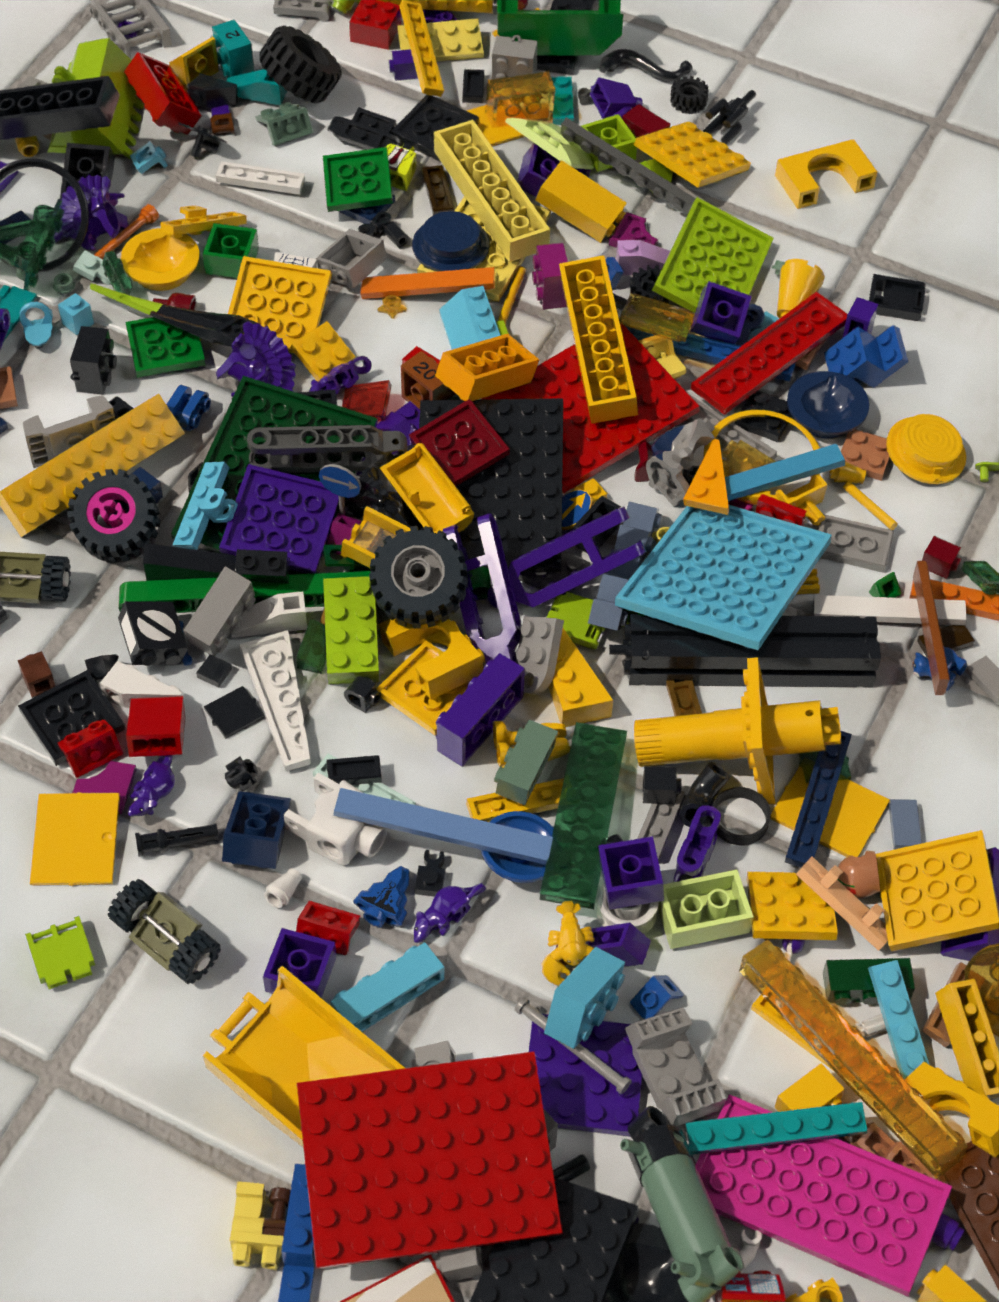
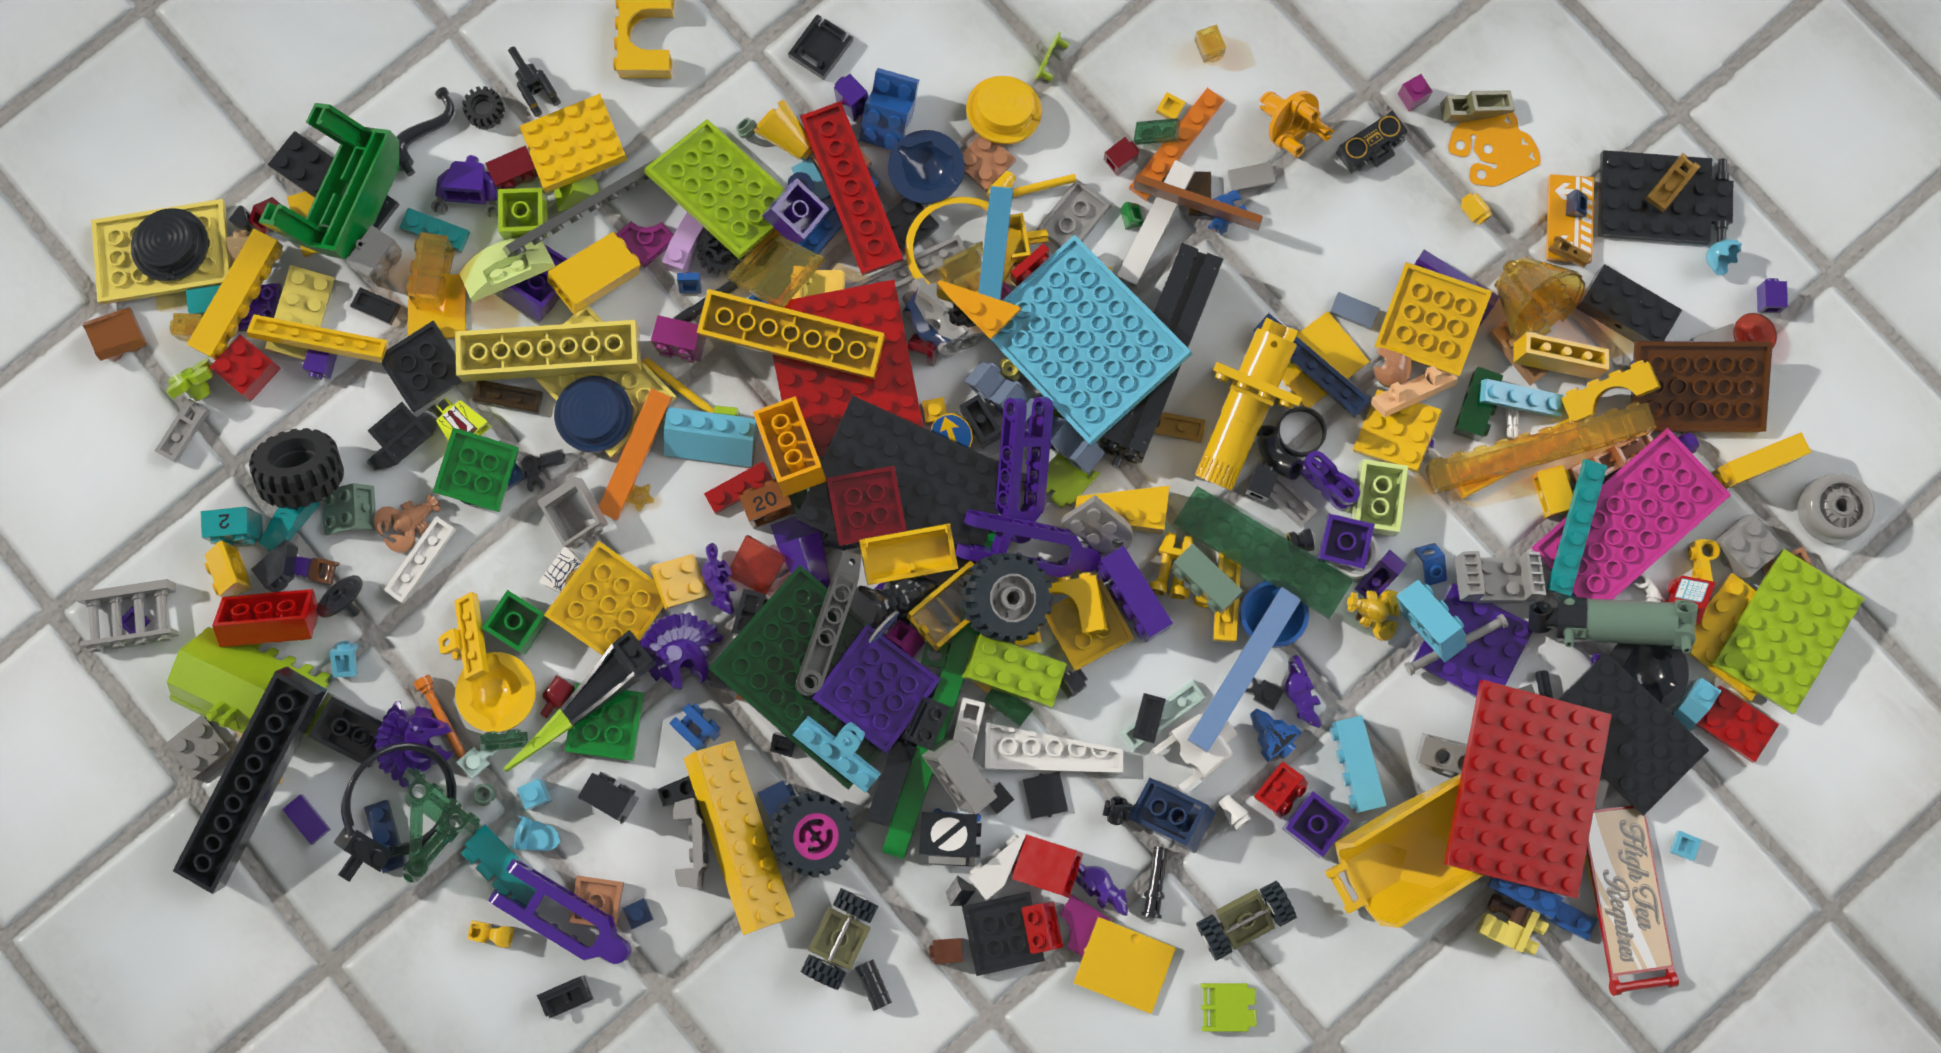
camera: 65 degrees left, 25 degrees up
(289, 158) = (405, 521): none -> nougat animal

